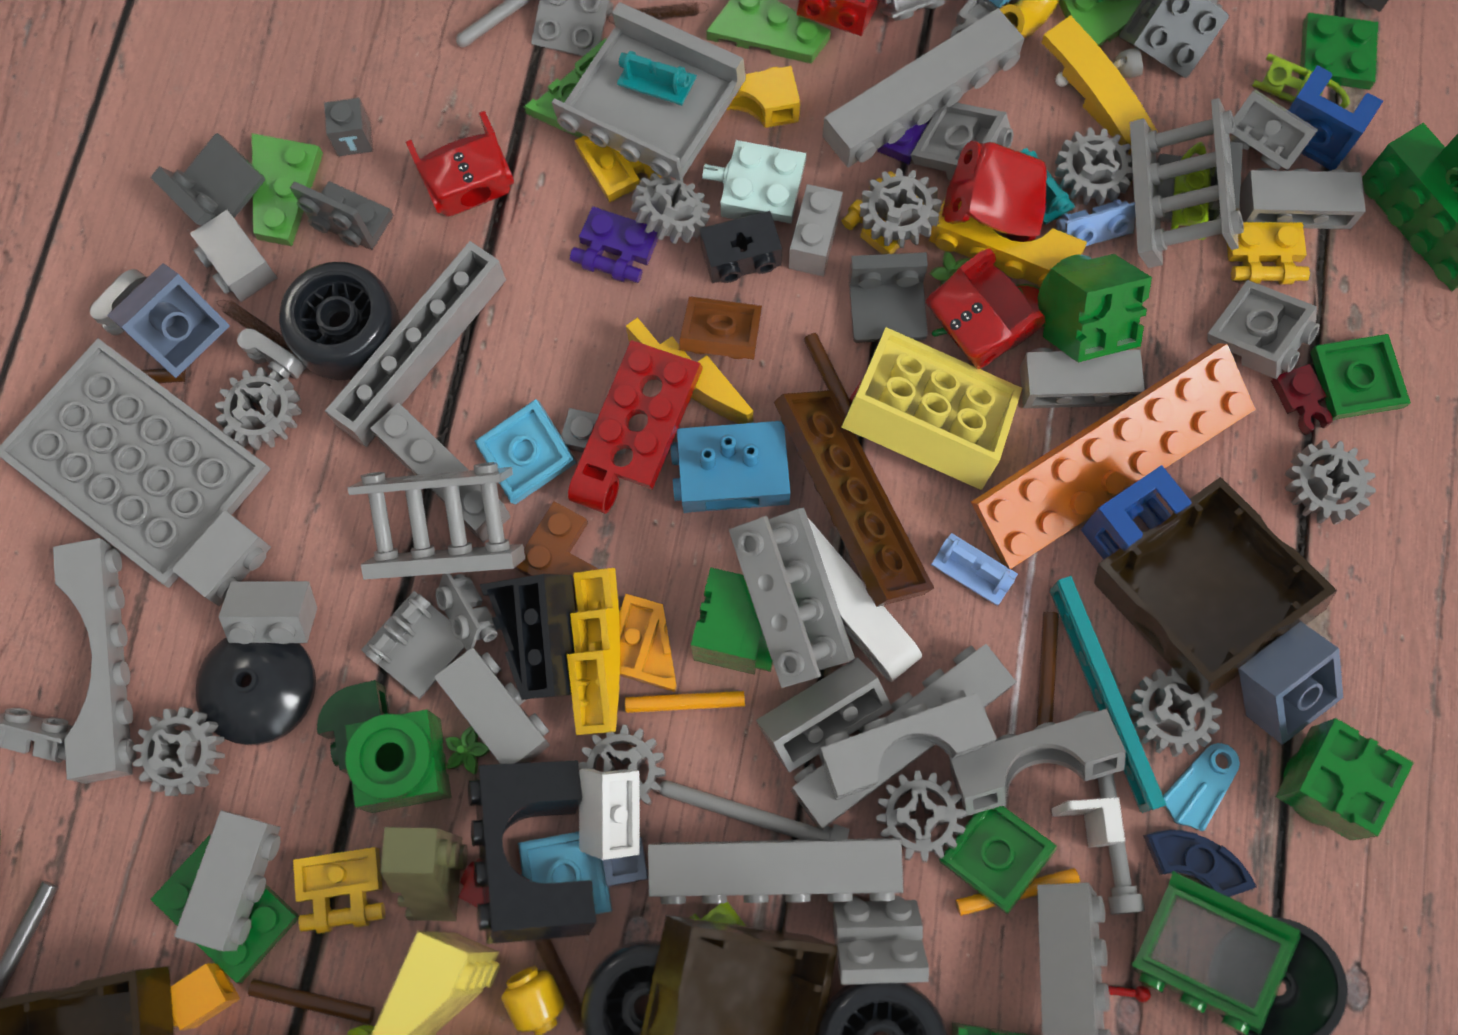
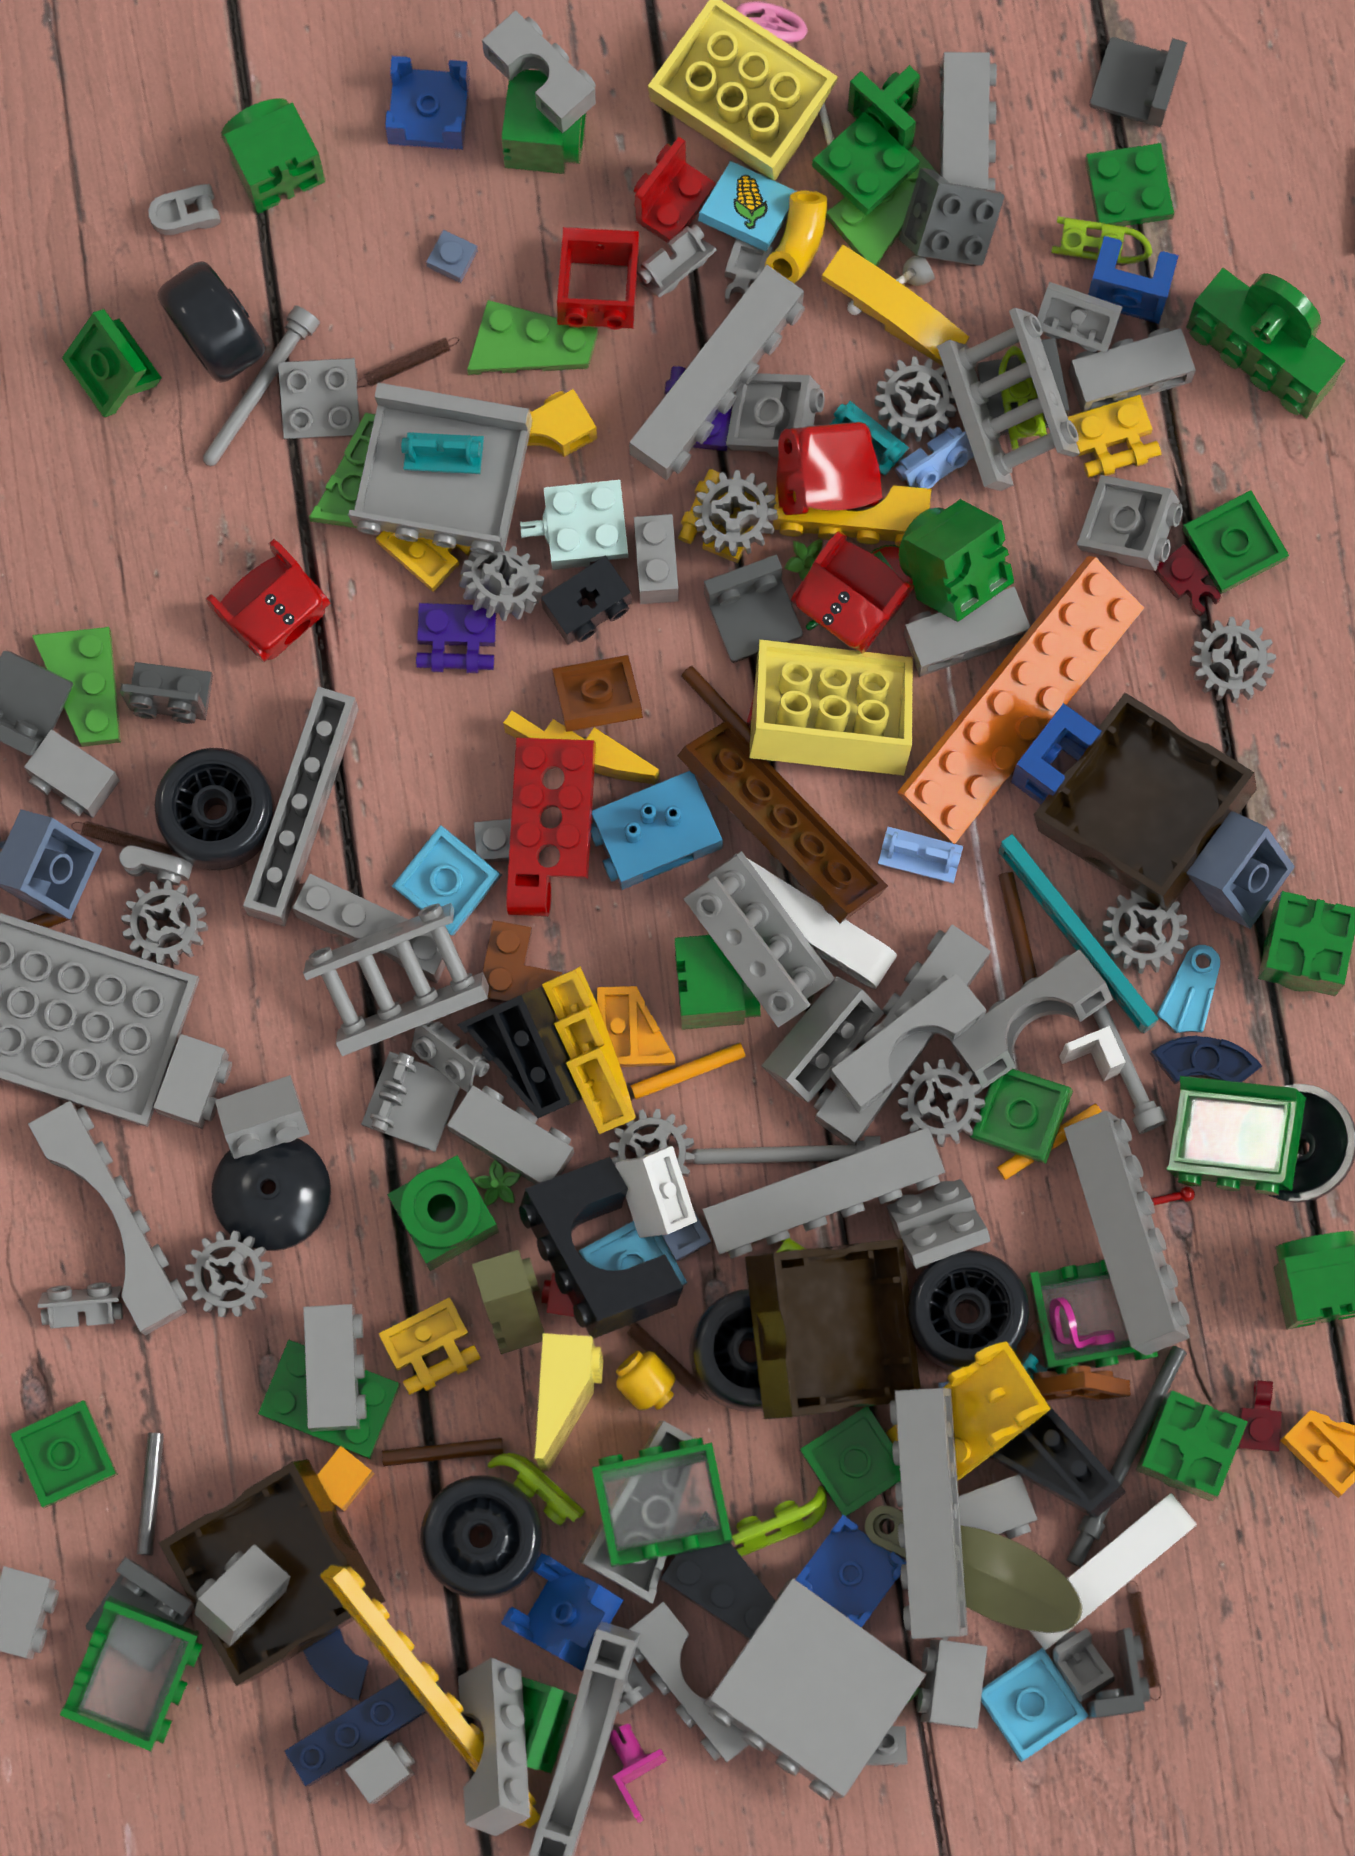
camera: 20 degrees left, 5 degrees up
(346, 707) = (370, 1191): dark green brick -> none
(348, 127) = (134, 597): dark grey brick -> none

